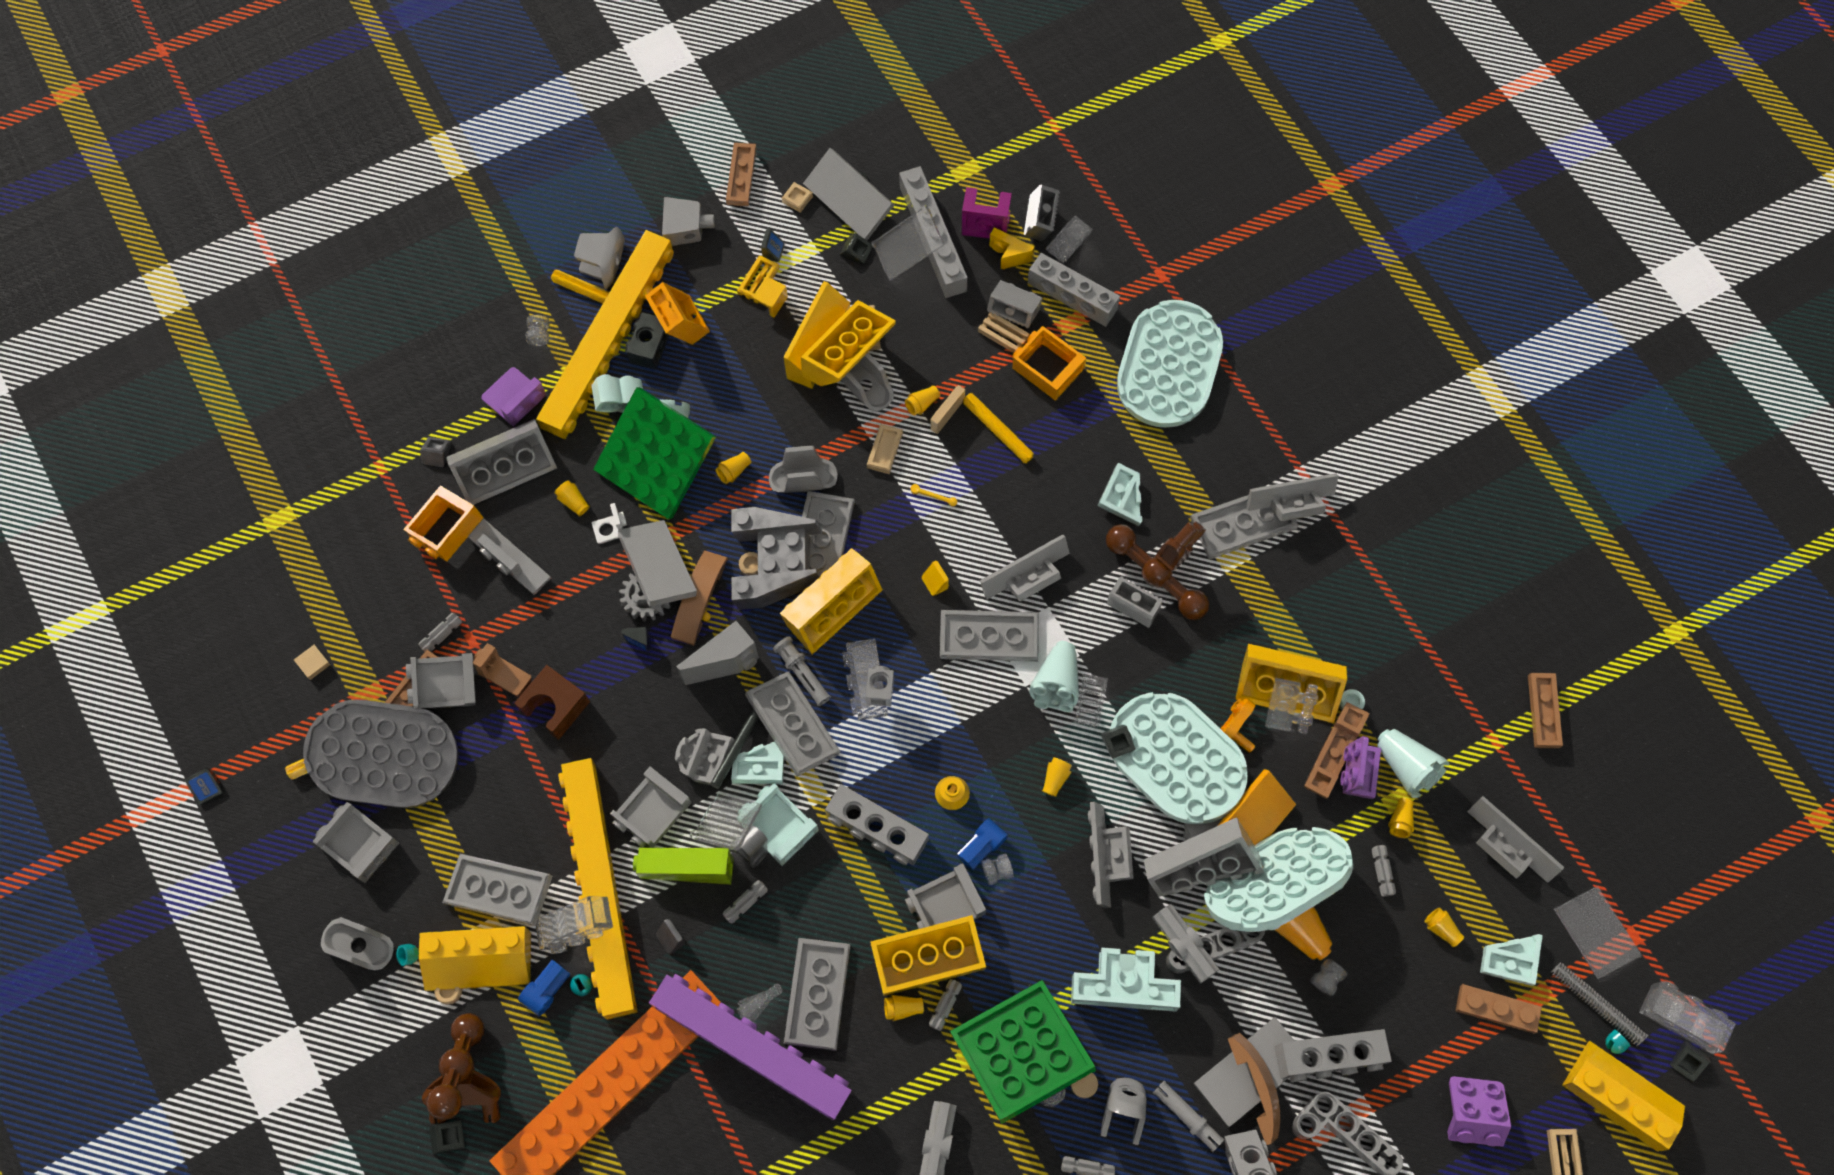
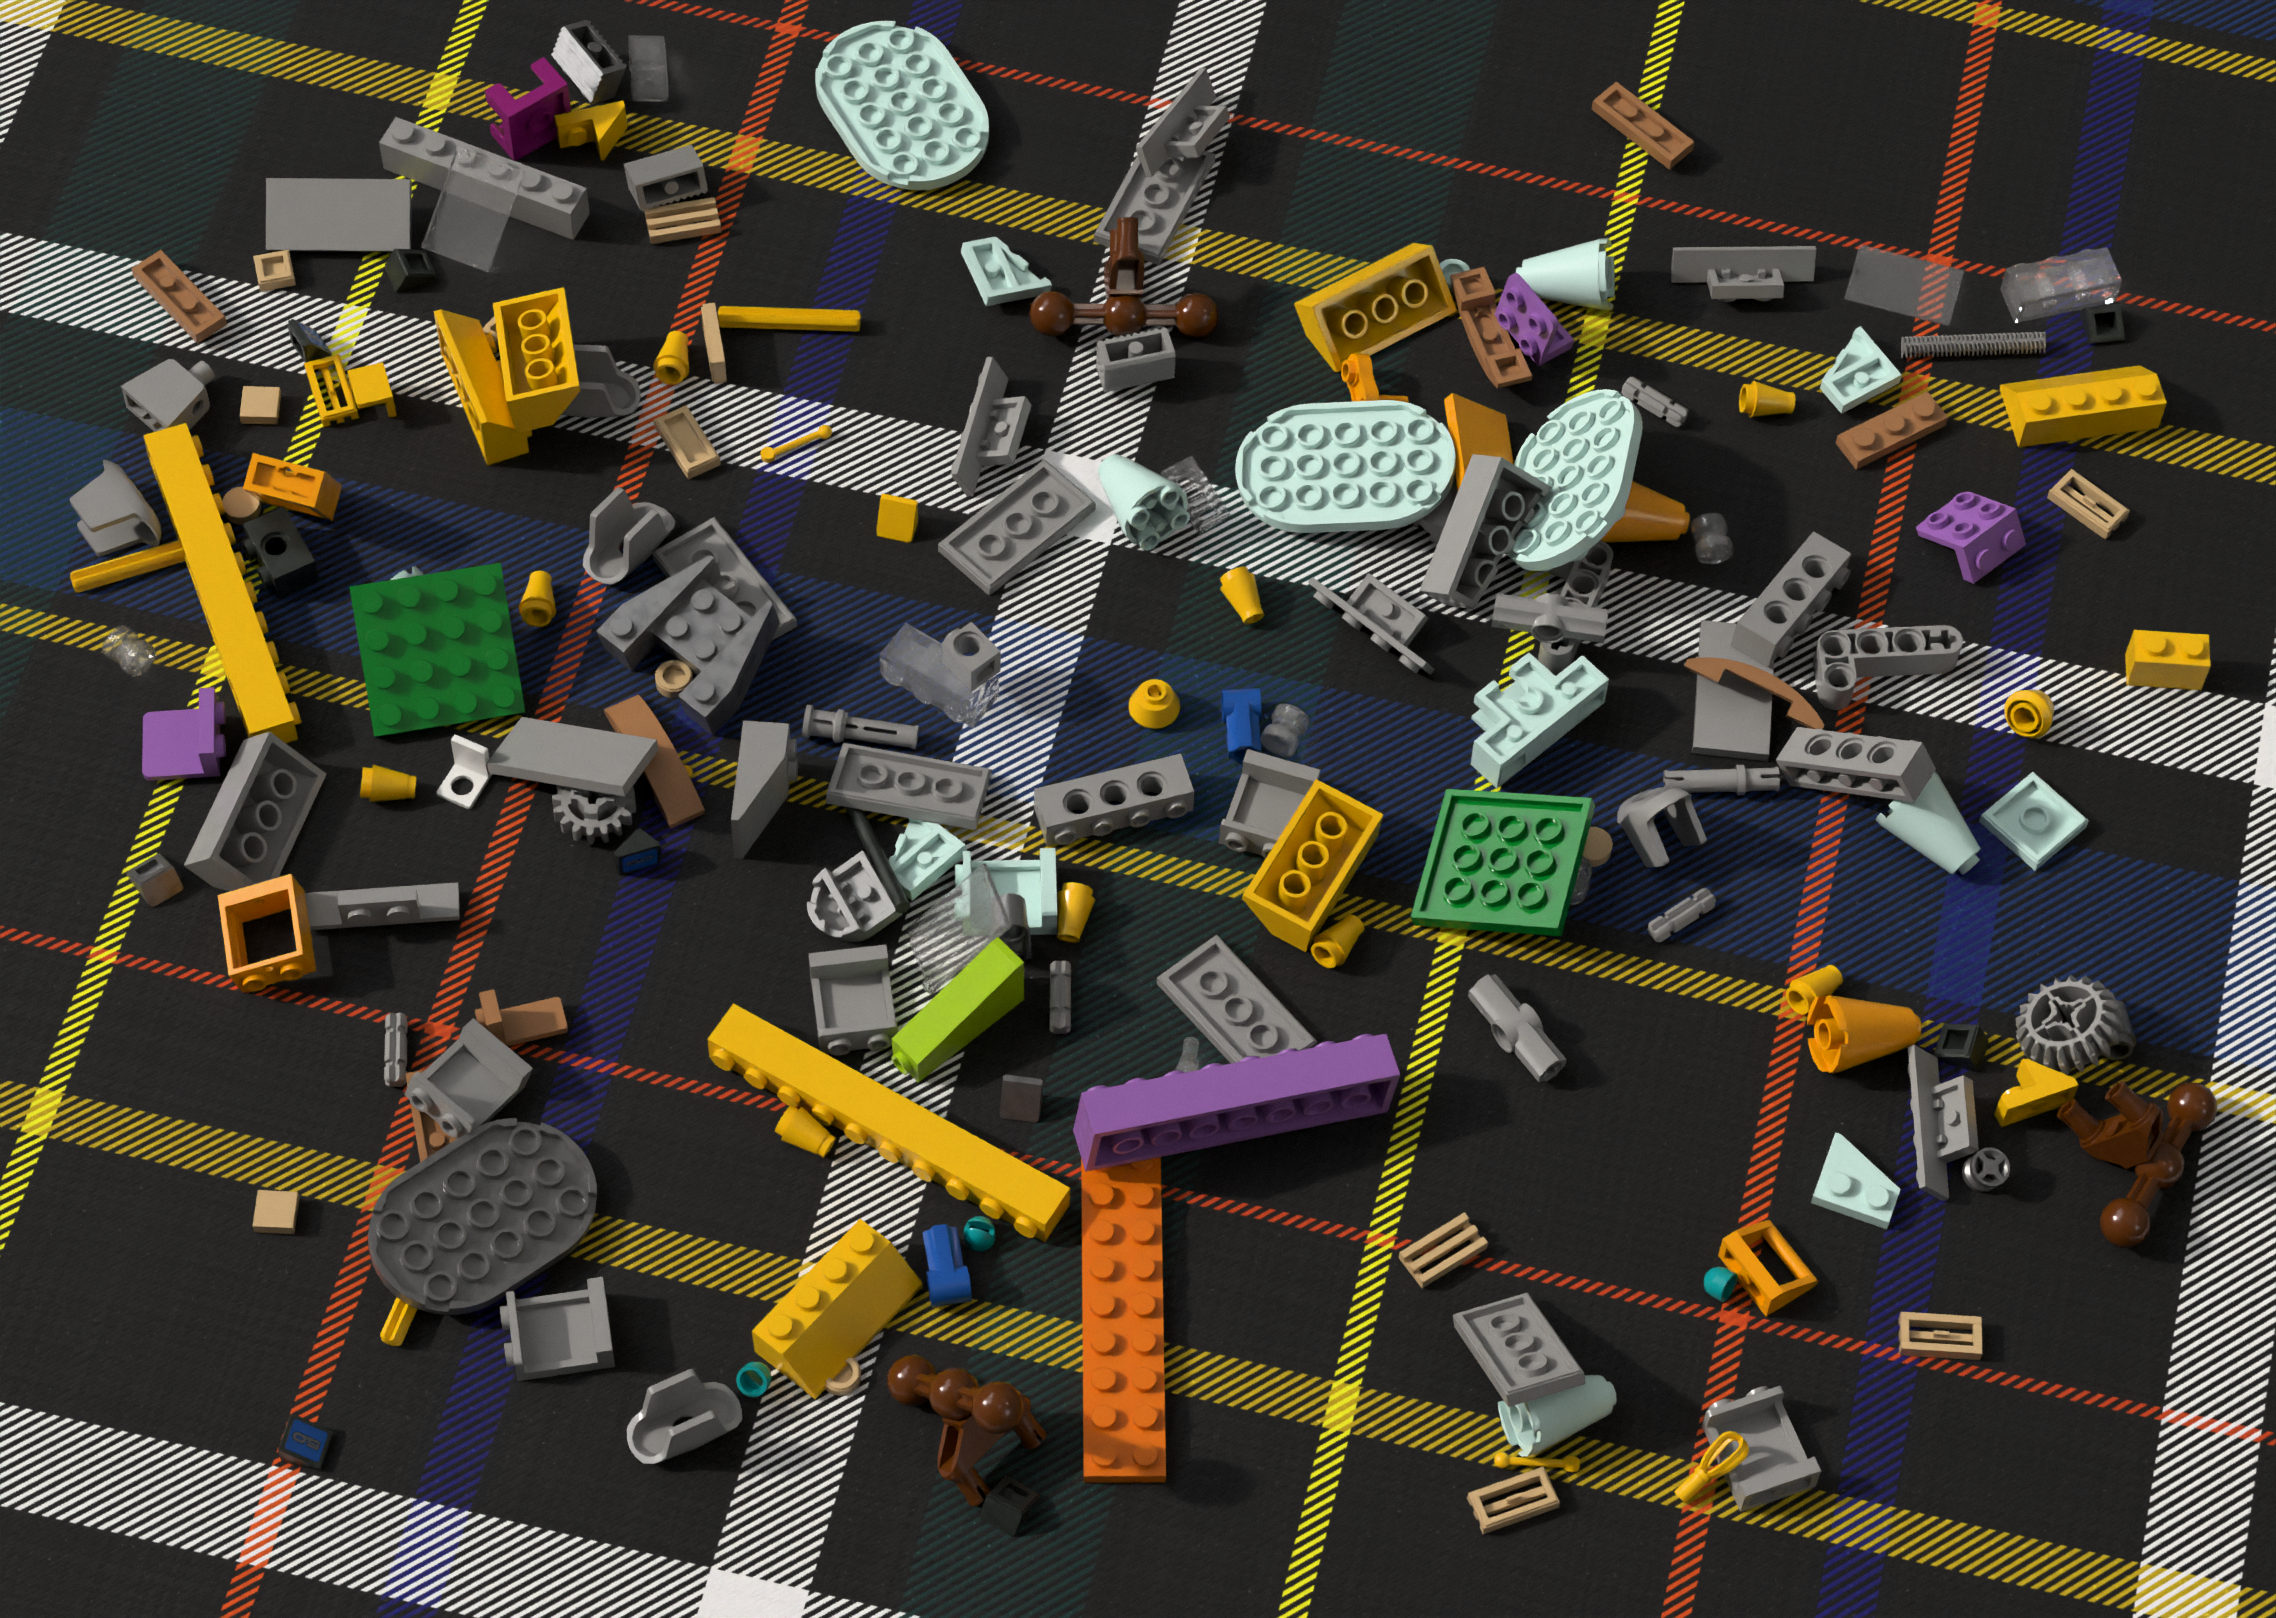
camera: 50 degrees left, 10 degrees down
(497, 889) = (780, 1223): light grey tile -> none
(555, 690) = (617, 980): reddish brown piece -> none
(559, 853) = (804, 1131): none -> yellow cone
(574, 924) = (912, 1166): clear brick -> none
(613, 393) = (315, 632): light aqua brick -> none
(720, 259) = (260, 405): none -> tan tile
(797, 863) = (1073, 910): none -> yellow cone
(832, 600) = (813, 627): yellow slope -> none
(945, 1004) = (1376, 901): light grey axle -> none
(1059, 347) = (770, 183): light orange window -> none
(1073, 289) = (713, 113): light grey brick -> none
(1118, 741) = (1270, 501): pearl dark grey slope -> none
(1283, 704) = (1393, 328): clear plate -> none
(1402, 820) = (1623, 341): yellow cone -> none
(1616, 1042) = (2025, 361): teal hinge -> none

